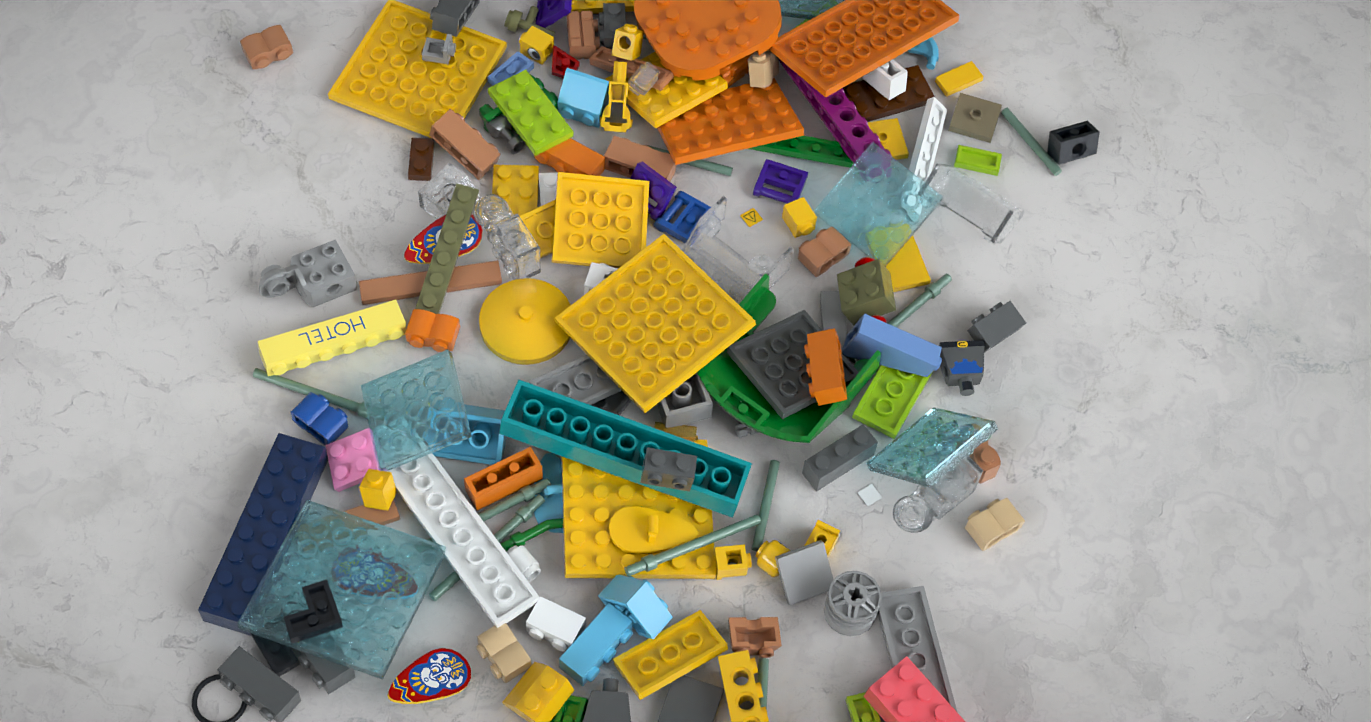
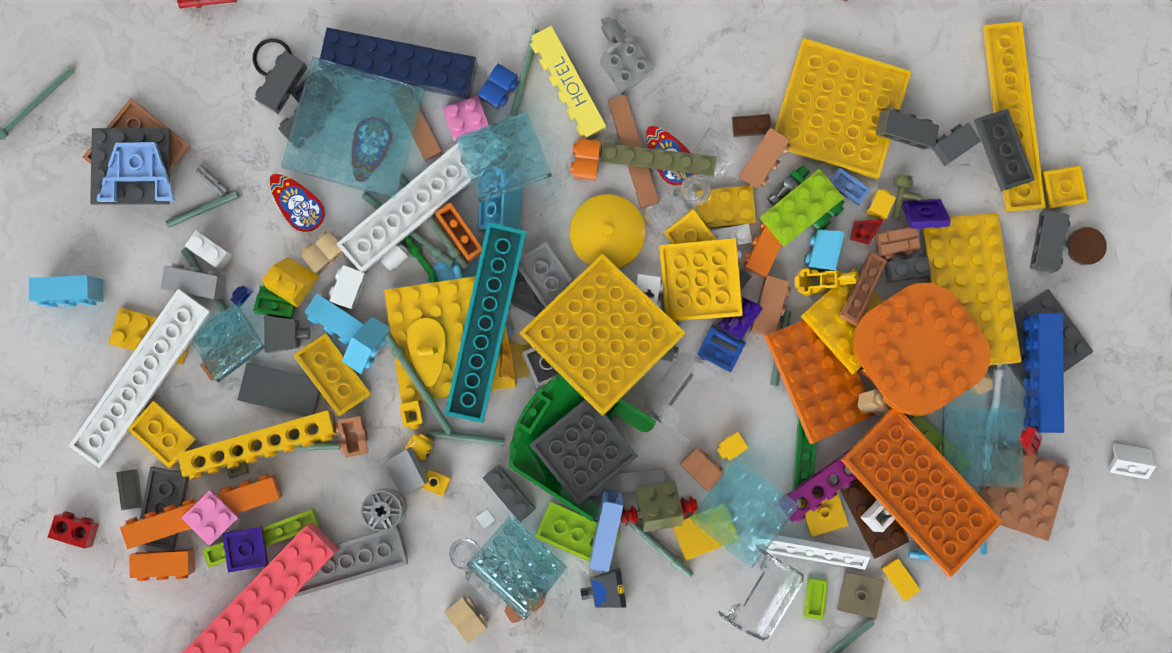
camera: 90 degrees right, 25 degrees up
(320, 616) = (319, 114): black plate -> none
(378, 489) = (438, 139): yellow brick -> none
(439, 50) = (857, 121): light grey bracket -> none
(620, 46) = (883, 282): yellow brick -> none
(643, 79) = (843, 300): clear brick -> none
(668, 469) = (458, 357): dark grey brick -> none
(751, 217) = (731, 405): yellow sticker -> none
(781, 177) = (772, 428): dark purple plate -> none
(825, 367) = (573, 476): orange brick -> none
(996, 326) = (644, 617): dark grey brick -> none

